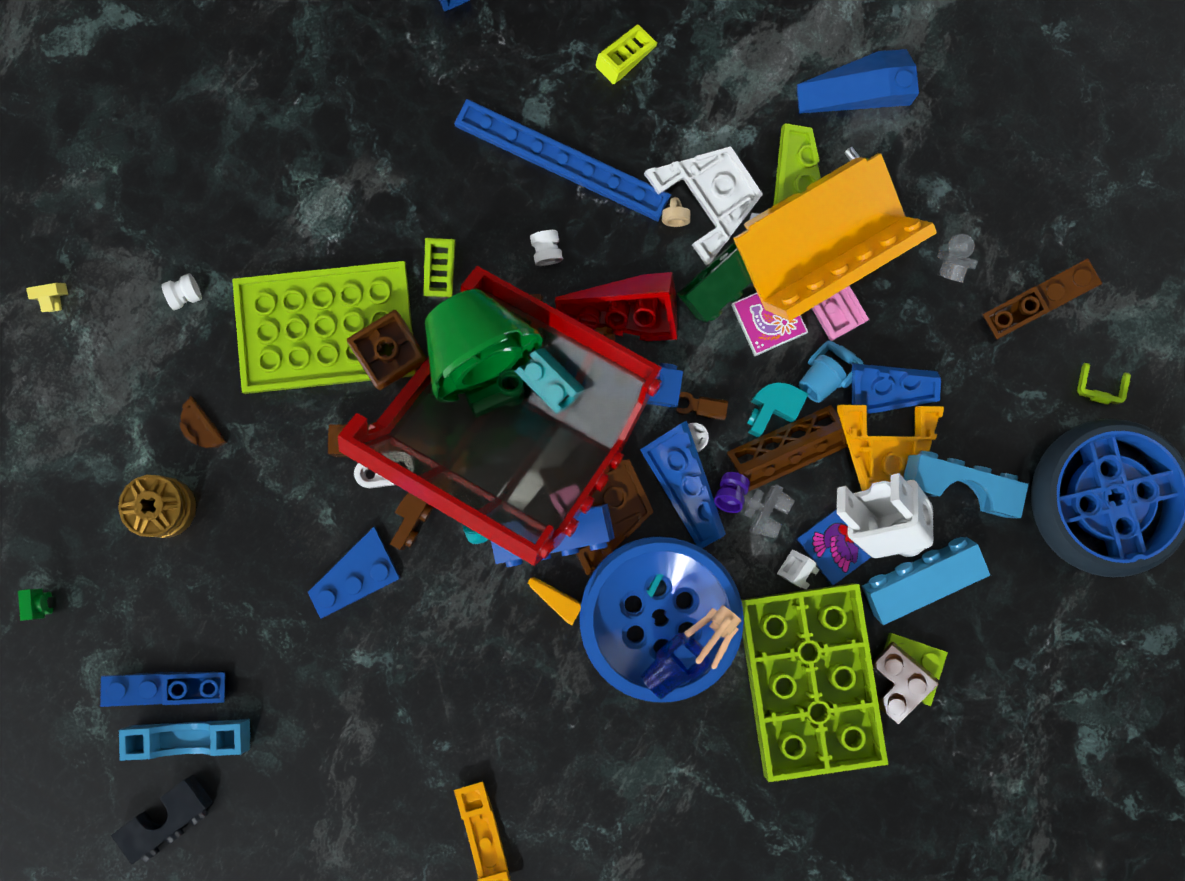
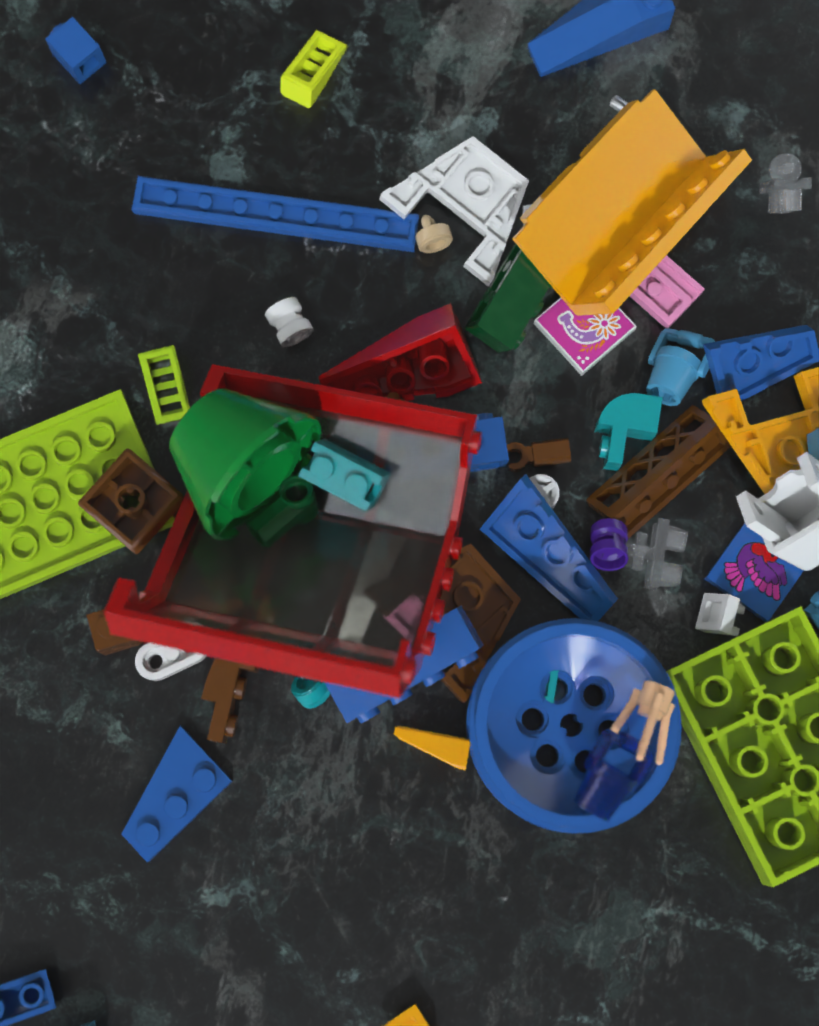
camera: 15 degrees left, 5 degrees down
(796, 161) = (555, 130): lime wing -> none

